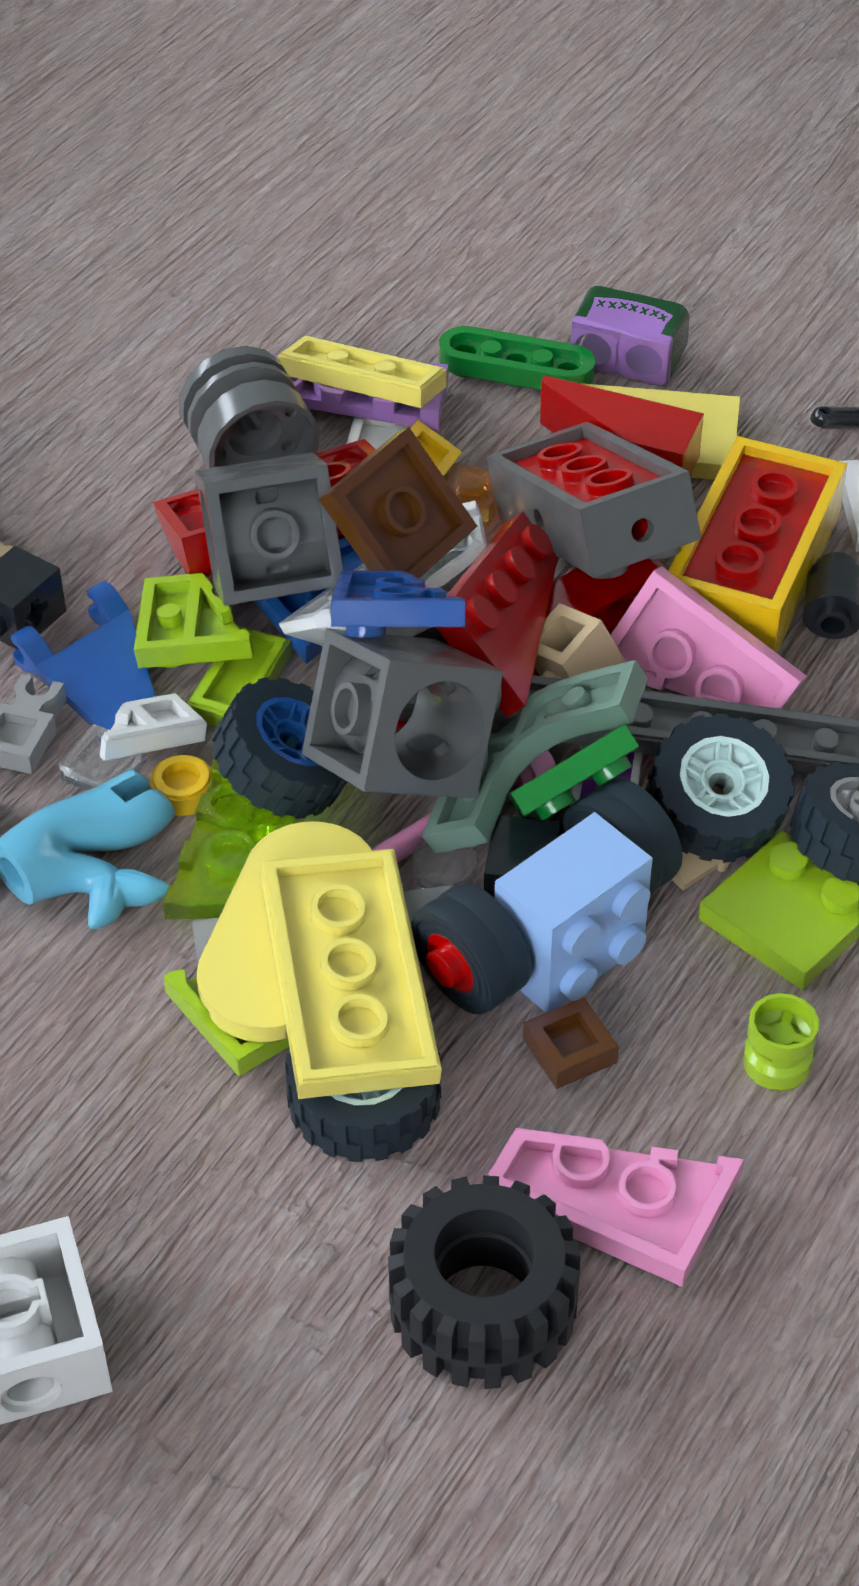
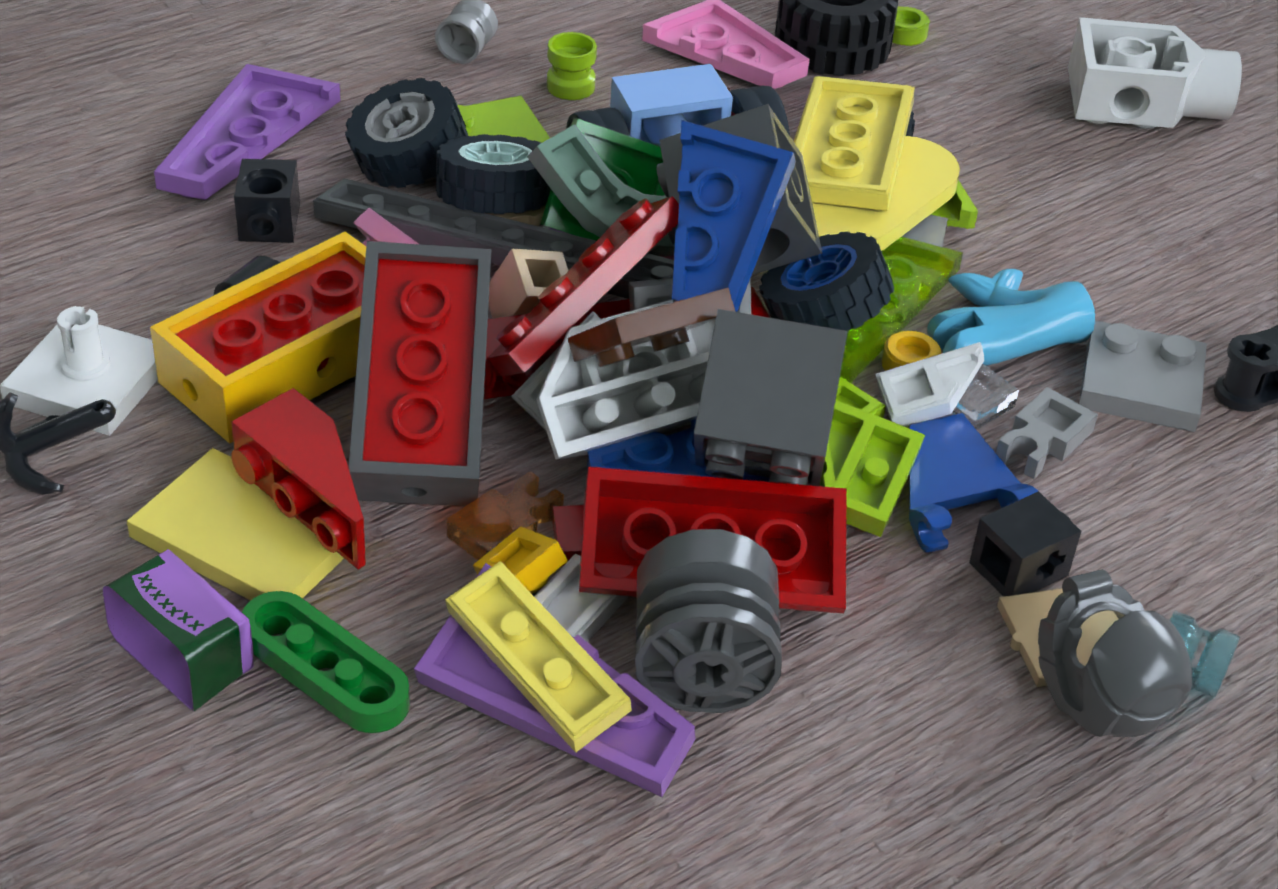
camera: 160 degrees left, 5 degrees down
(390, 1391) = (910, 26): none -> lime tile

